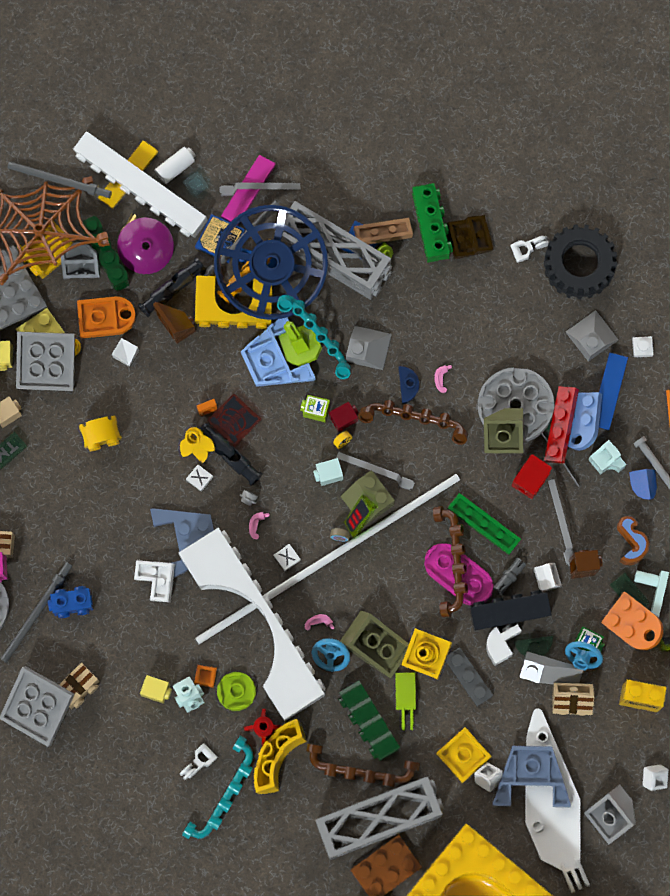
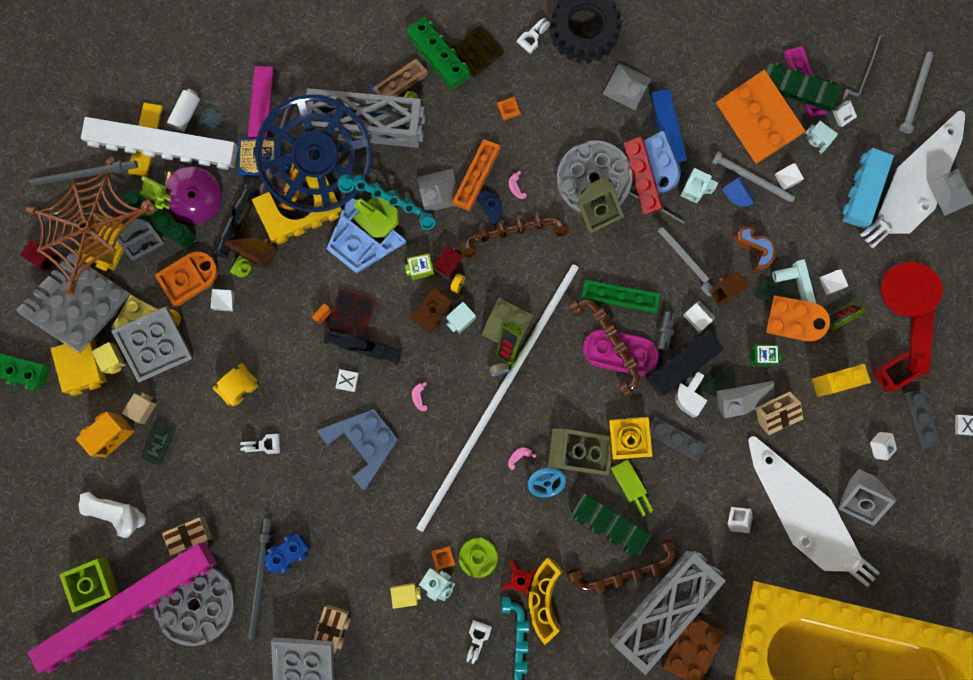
camera: 30 degrees left, 5 degrees up
(83, 493) = (248, 446): none -> white piece
(114, 227) = (156, 192): none -> lime arm
(156, 331) = (241, 267): none -> lime plate
(160, 575) = (358, 488): white tile -> none
(198, 446) = (332, 352): yellow plate -> none
(218, 567) = (524, 525): white arch -> none
(230, 190) = (244, 110): light grey piece -> none
(248, 497) = (400, 376): light grey plate -> none
(287, 557) = (462, 413): white tile -> none
(306, 453) = (432, 311): none -> reddish brown brick
(403, 482) = (530, 294): light grey piece -> none
(409, 350) = (476, 175): none -> orange plate
(463, 755) = (708, 511): yellow tile -> none
(471, 304) = (508, 108): none -> orange tile
(531, 476) = (641, 234): red piece -> none
(532, 768) = (775, 493): sand blue wing -> none
(582, 657) = (770, 374): dark azure piece -> none
(642, 346) = (675, 74): white plate -> none

